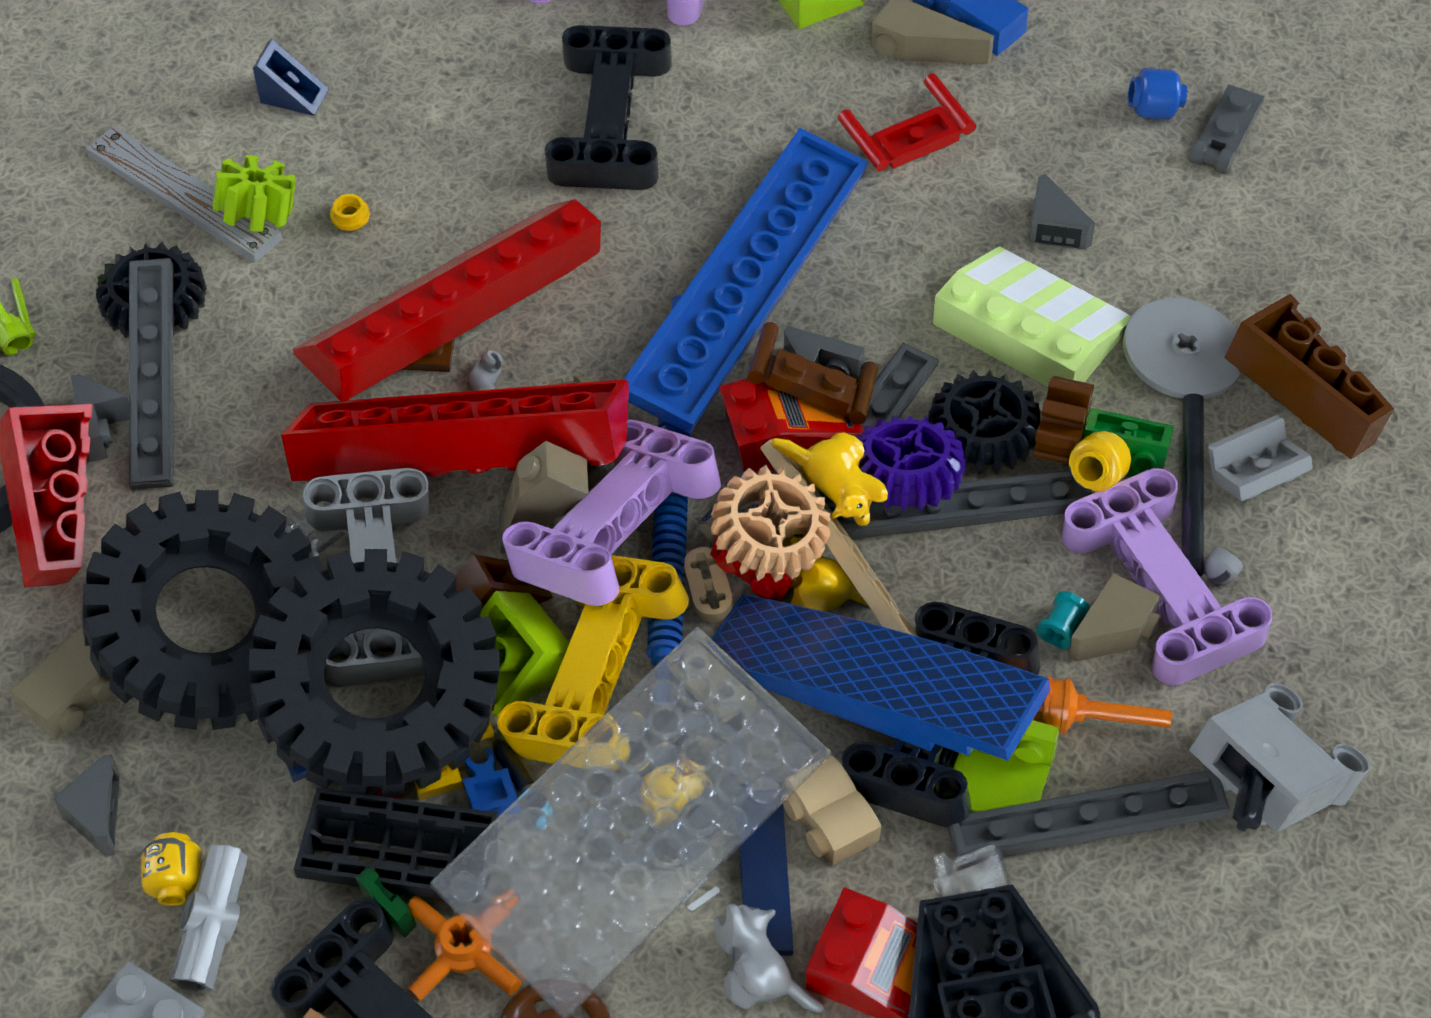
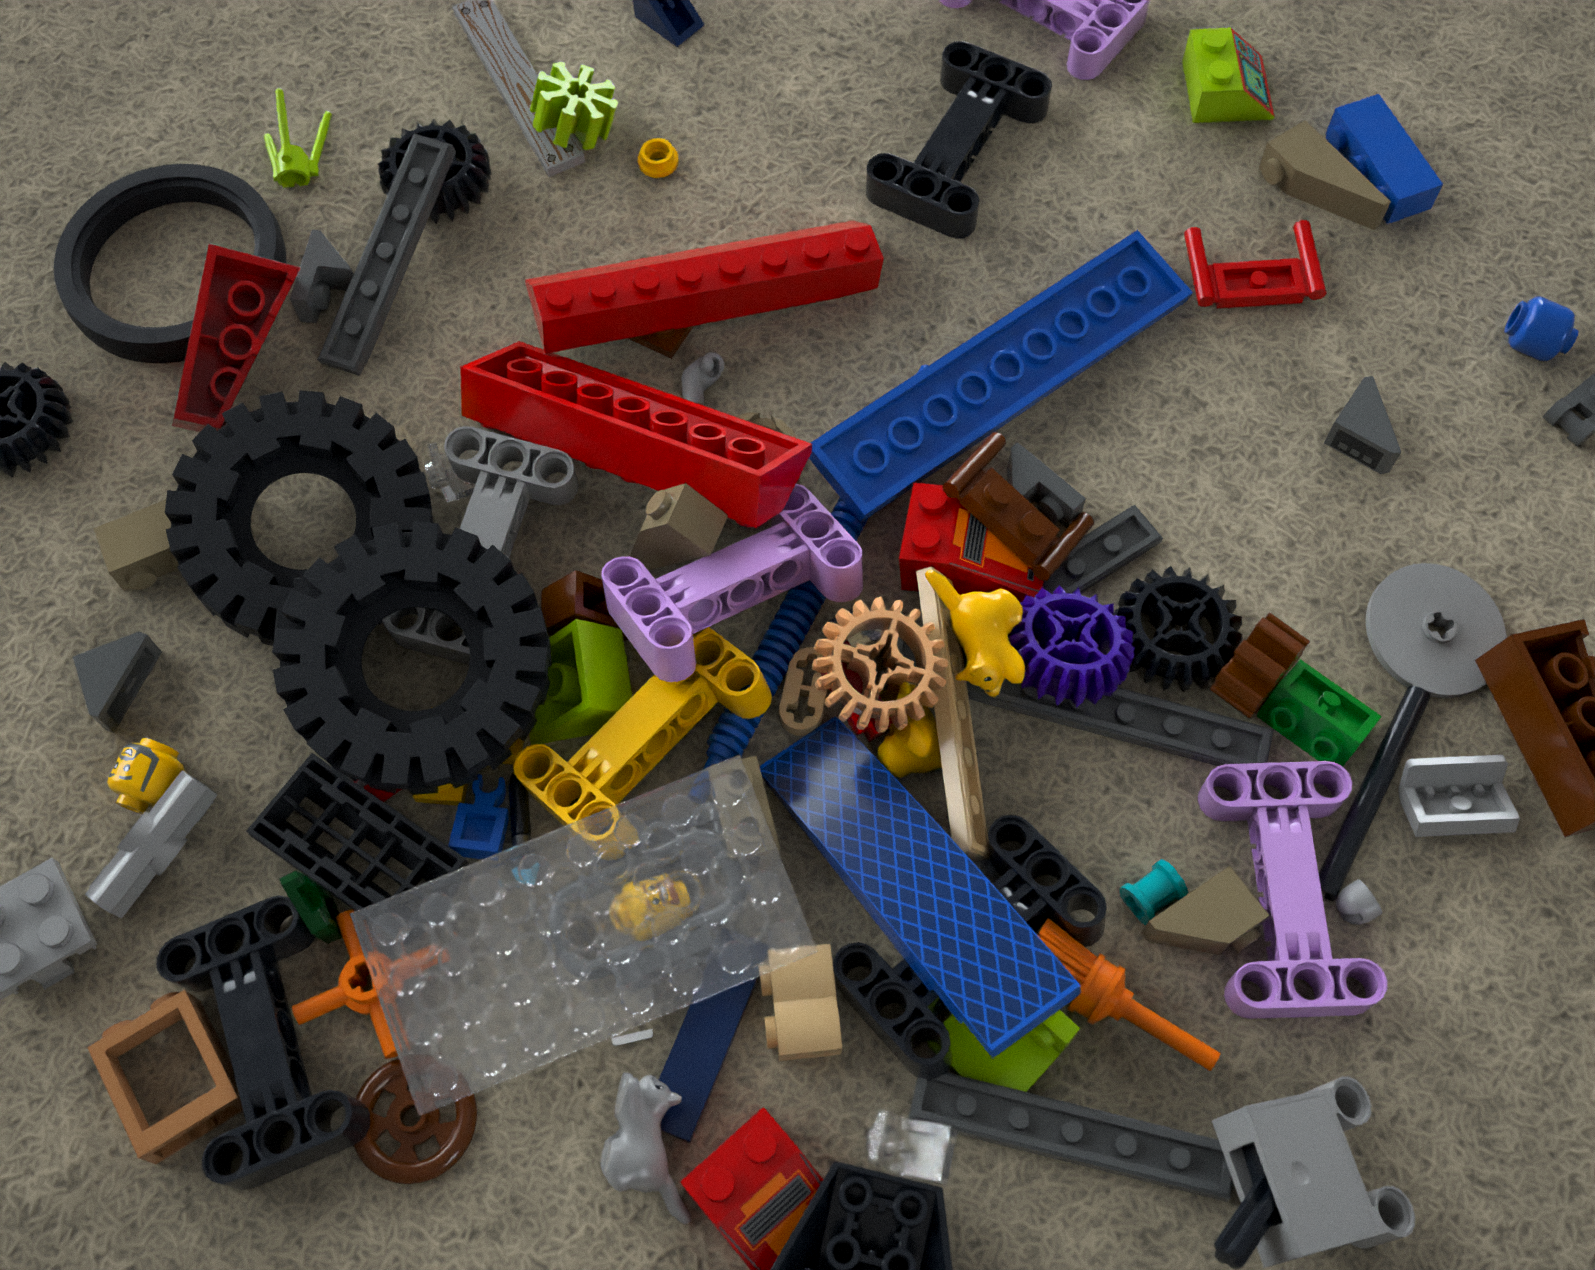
camera: 25 degrees right, 10 degrees up
(1028, 317) = (1283, 530): yellowish green slope -> none
(1099, 461) = (1275, 731): yellow head -> none

